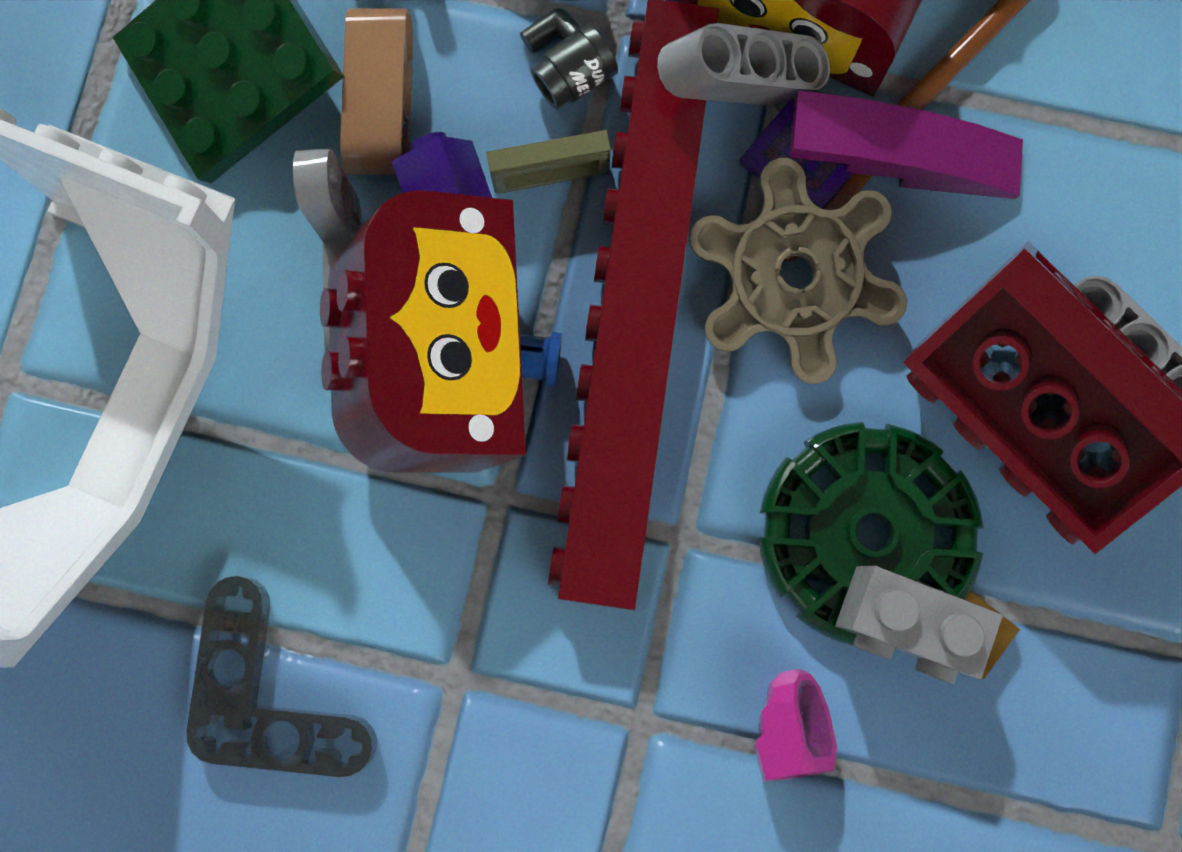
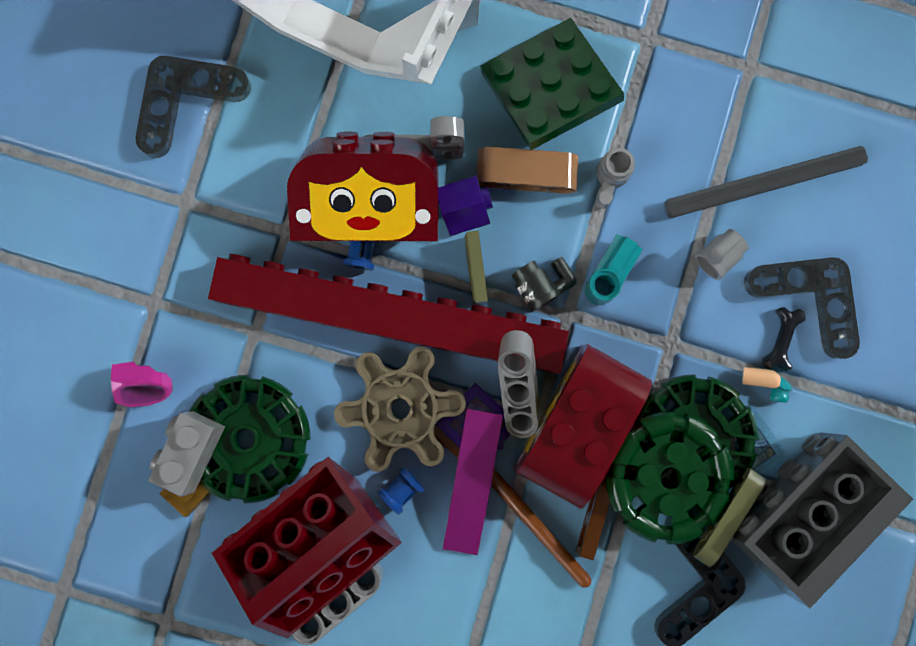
camera: 90 degrees right, 5 degrees up
(934, 263) = (400, 491): none -> blue bush

